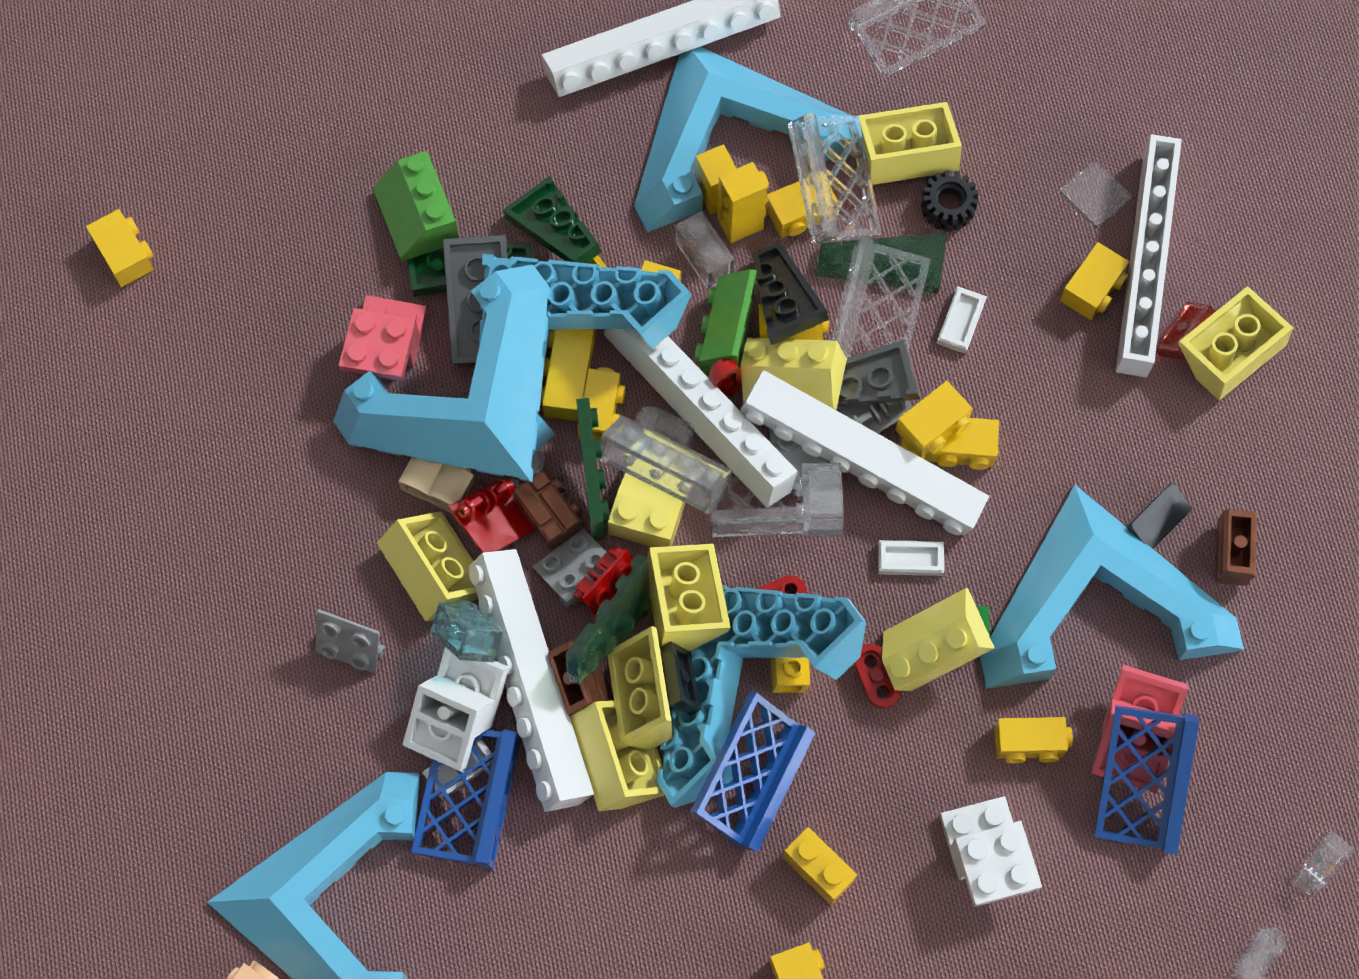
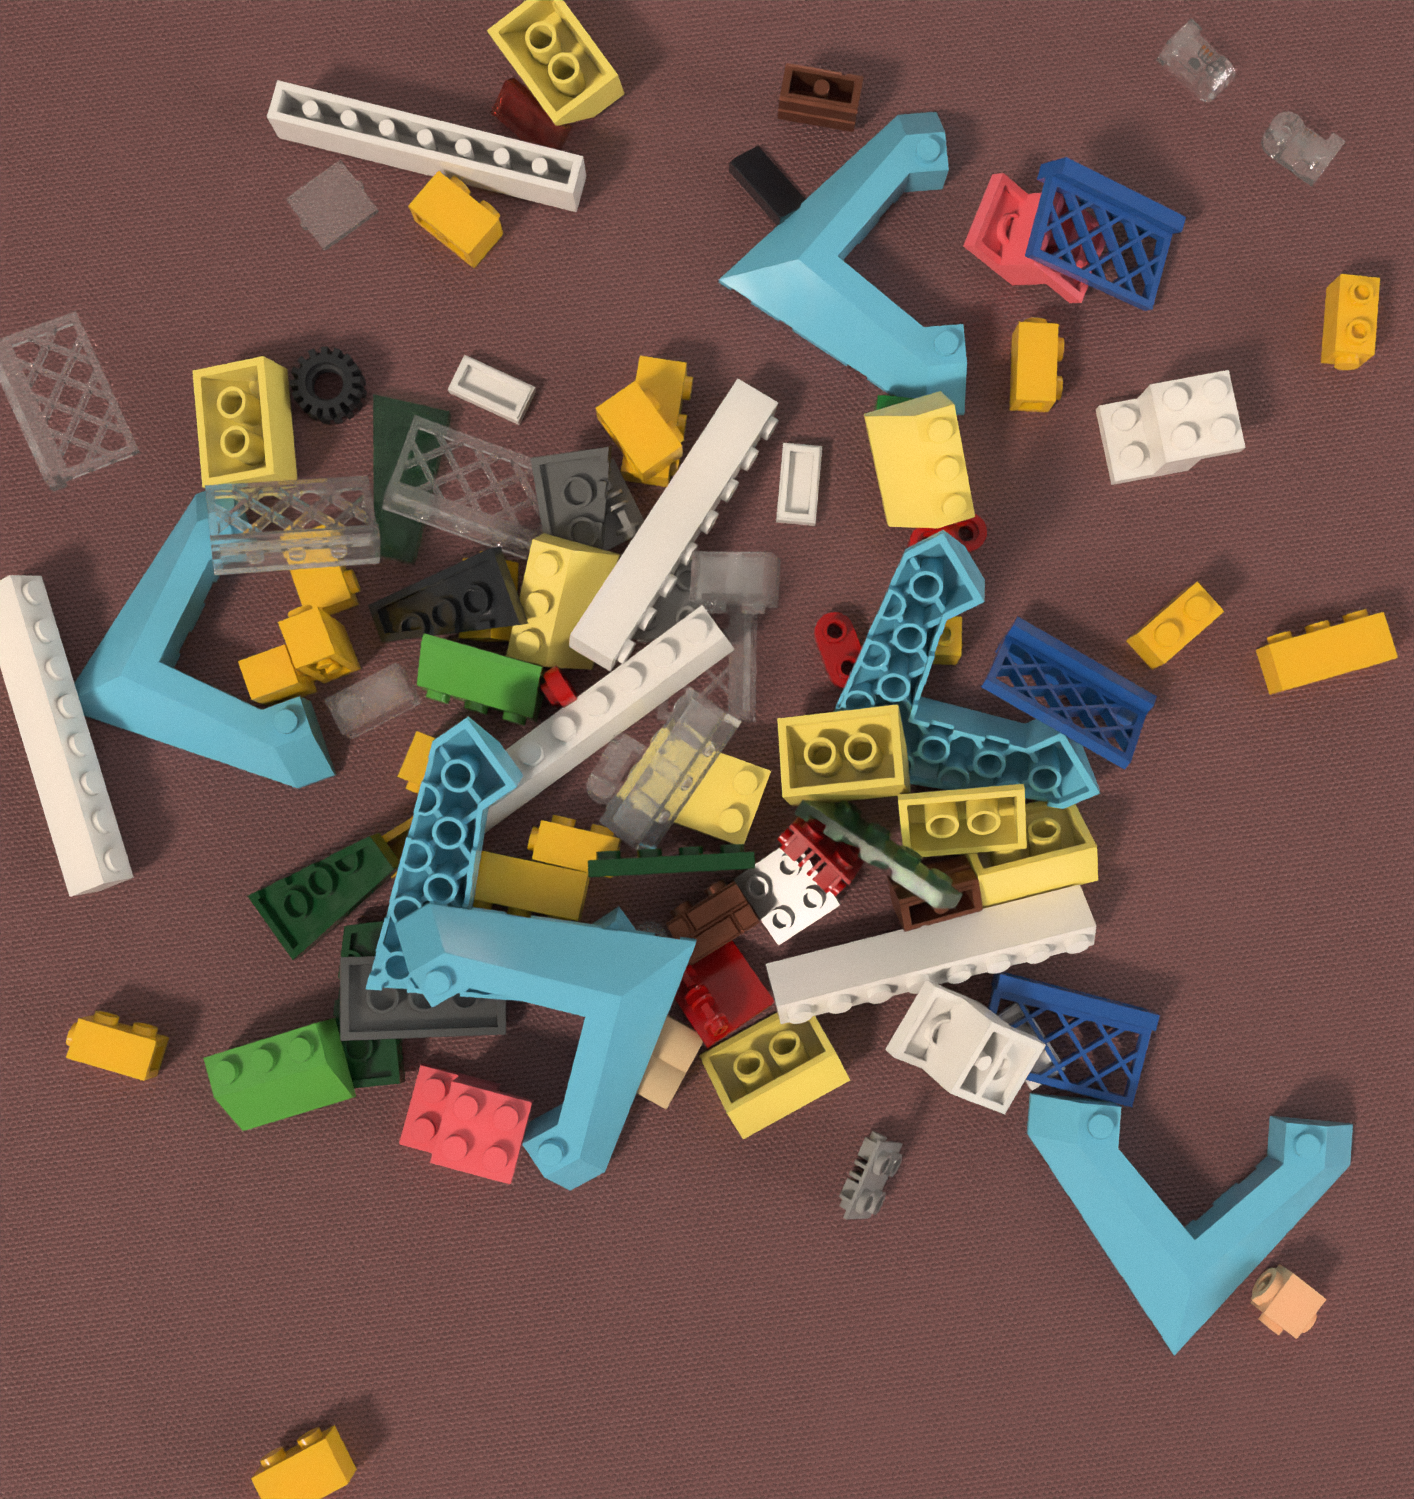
camera: 85 degrees left, 15 degrees up
(432, 97) = (117, 1046): none -> yellow brick
(466, 631) = (880, 1030): clear light blue brick -> none
(680, 678) = (950, 770): black plate -> none

